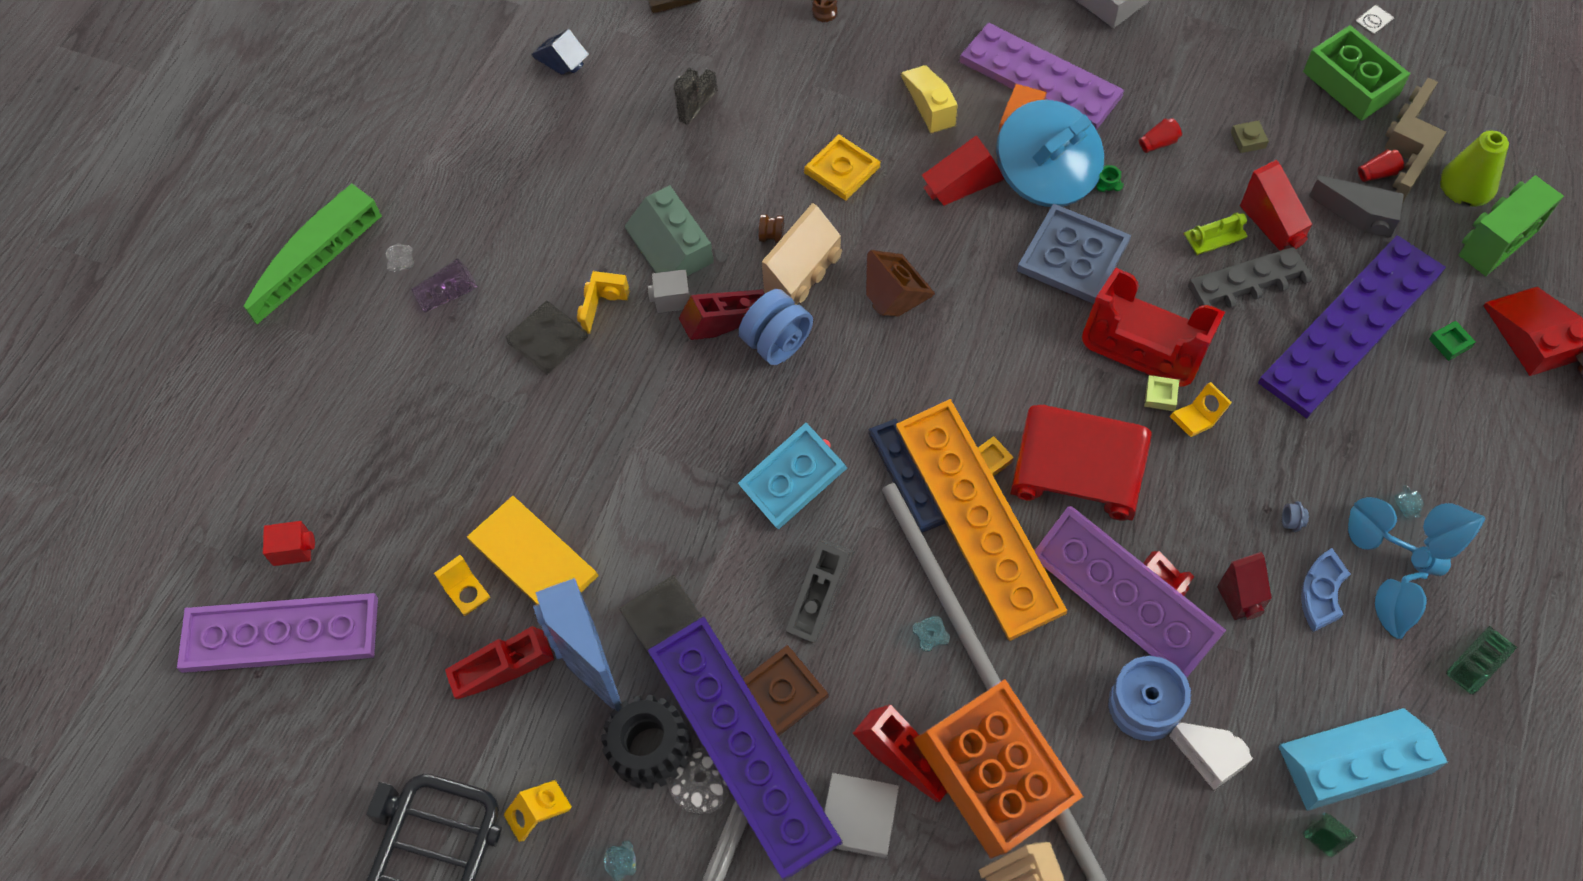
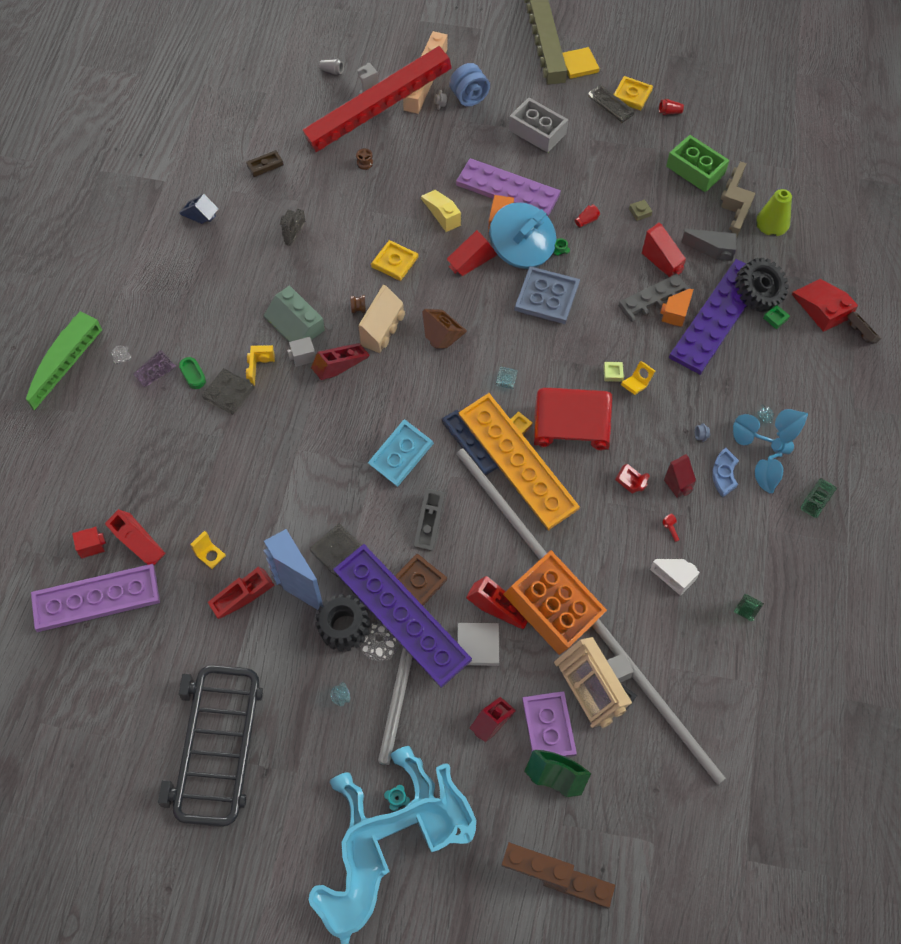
camera: 15 degrees left, 0 degrees up
(356, 546) = (135, 537): none -> red slope
(499, 301) = (192, 373): none -> green tile
(528, 550) = (244, 523): yellow tile -> none
(536, 806) = (282, 671): yellow bracket -> none
(775, 326) = (373, 364): medium blue wheel -> none
(931, 624) = (502, 527): clear light blue plate -> none
(984, 378) = (506, 377): none -> clear light blue plate
(1127, 592) = (613, 490): medium lavender plate -> none
(1148, 335) = (599, 338): red windscreen -> none
(1149, 698) = (635, 548): medium blue wheel -> none
(1213, 661) = (668, 523): none -> red hand
(1217, 233) = (631, 271): lime hinge -> none
(1284, 302) = (676, 308): none -> orange slope
(1361, 757) = (760, 563): medium azure slope -> none
(1374, 19) = (703, 128): white sticker -> none
(1381, 166) = (721, 218): red cone -> none
(1435, 283) = (761, 284): none -> black wheel
(1509, 224) = (799, 243): bright green brick -> none

